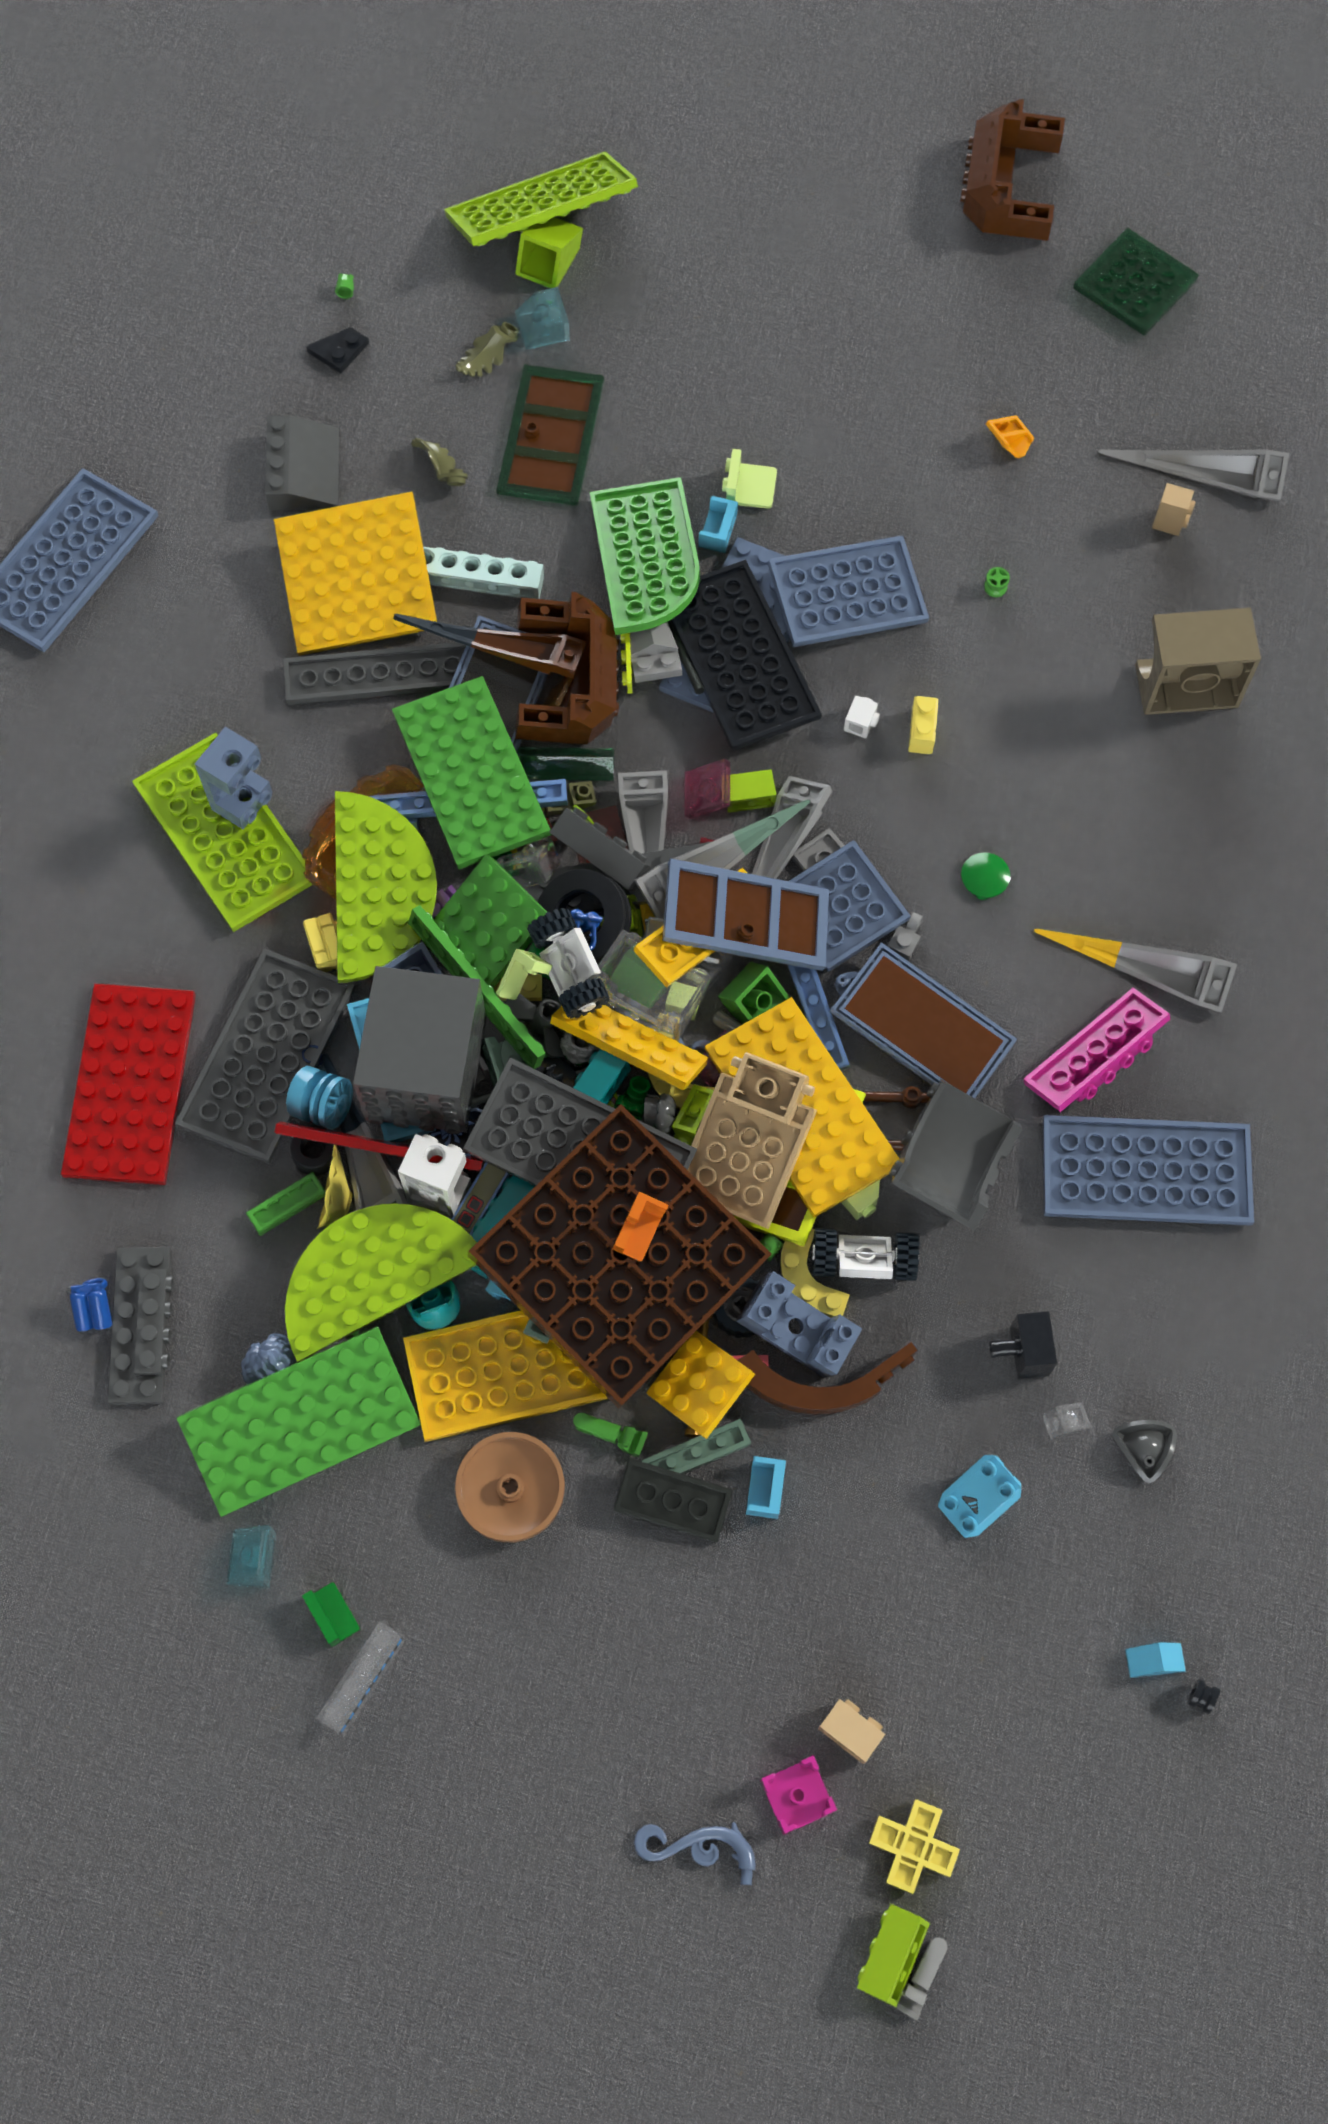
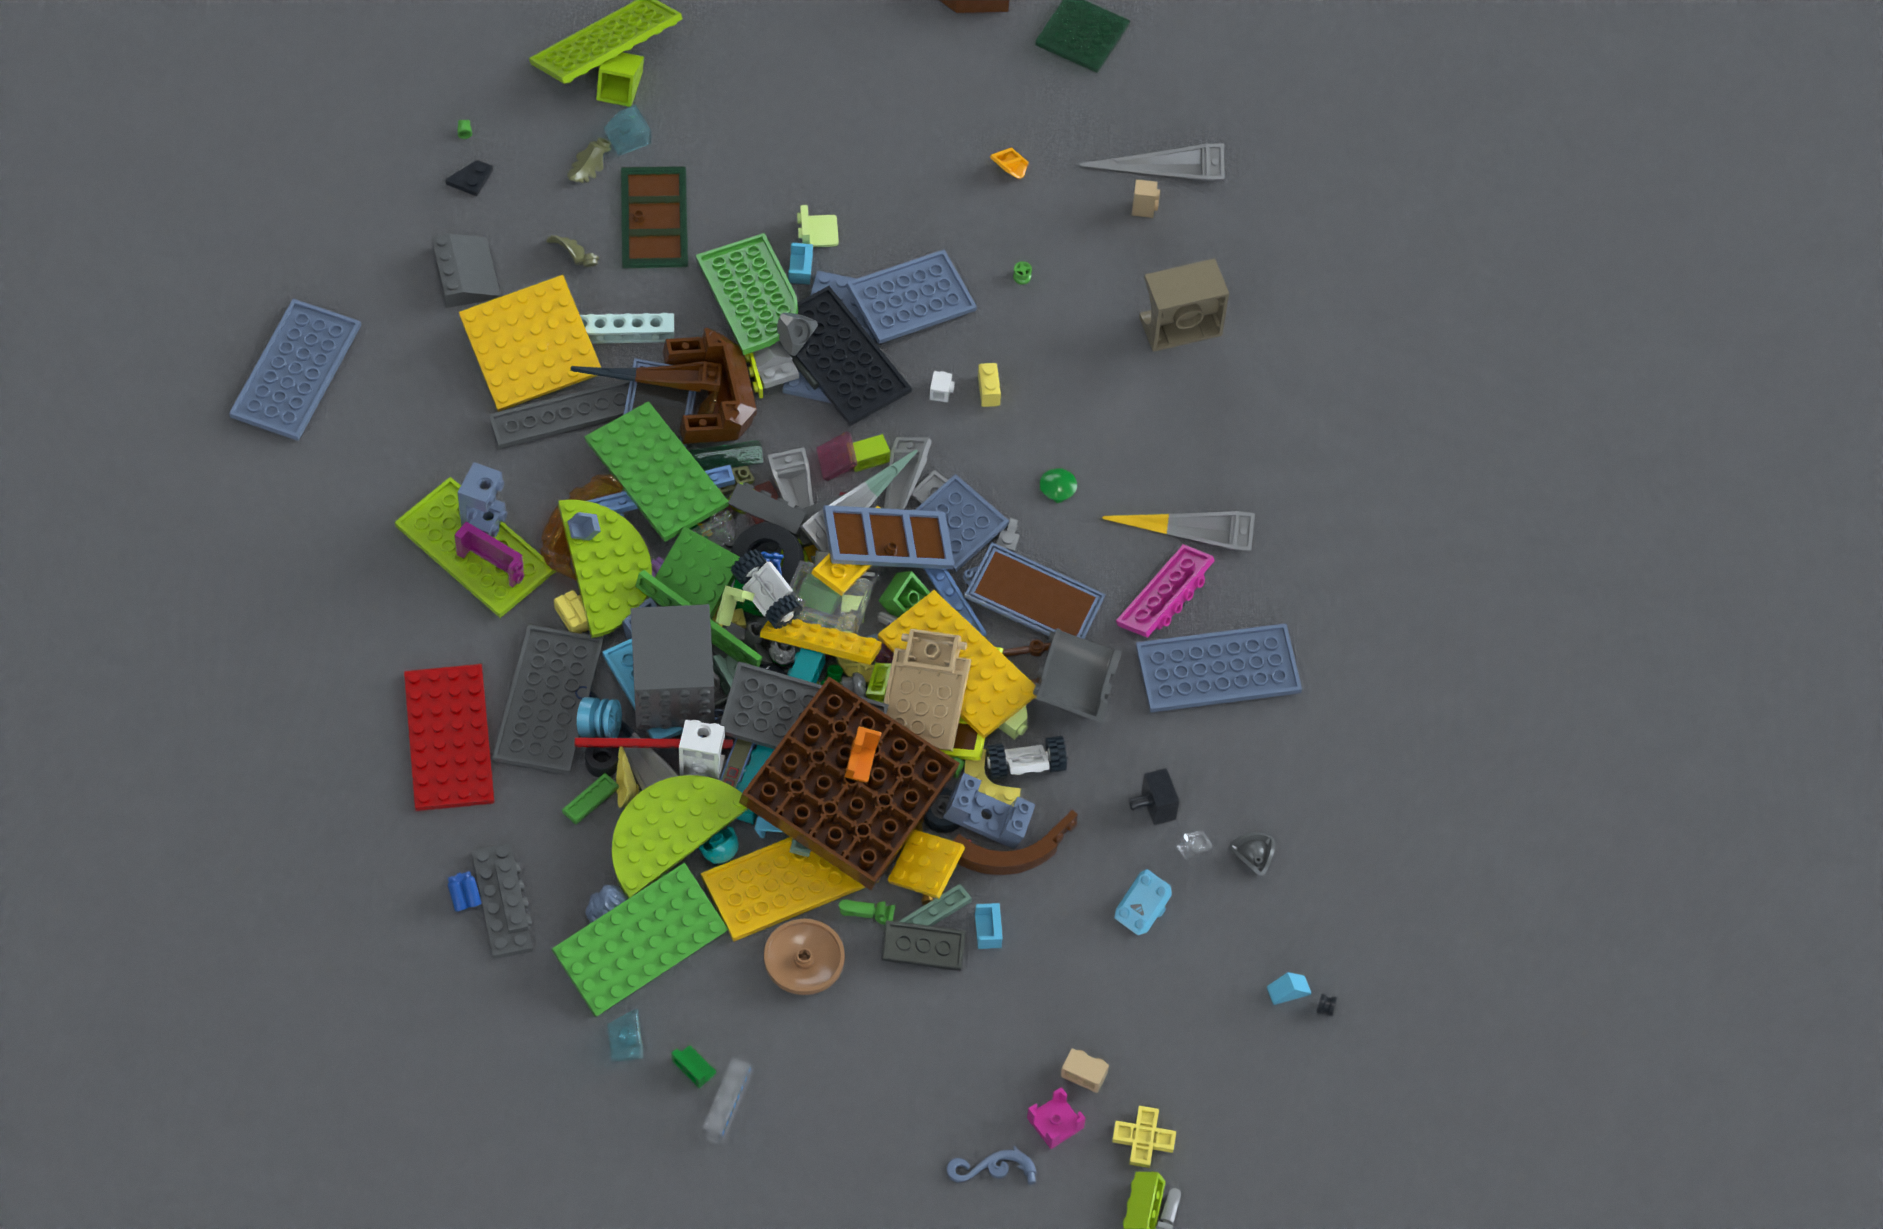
camera: 15 degrees left, 10 degrees down
(210, 823) = (473, 539): none -> magenta panel
(356, 833) = (584, 526): none -> sand blue panel
(686, 614) = (794, 331): none -> dark grey hat

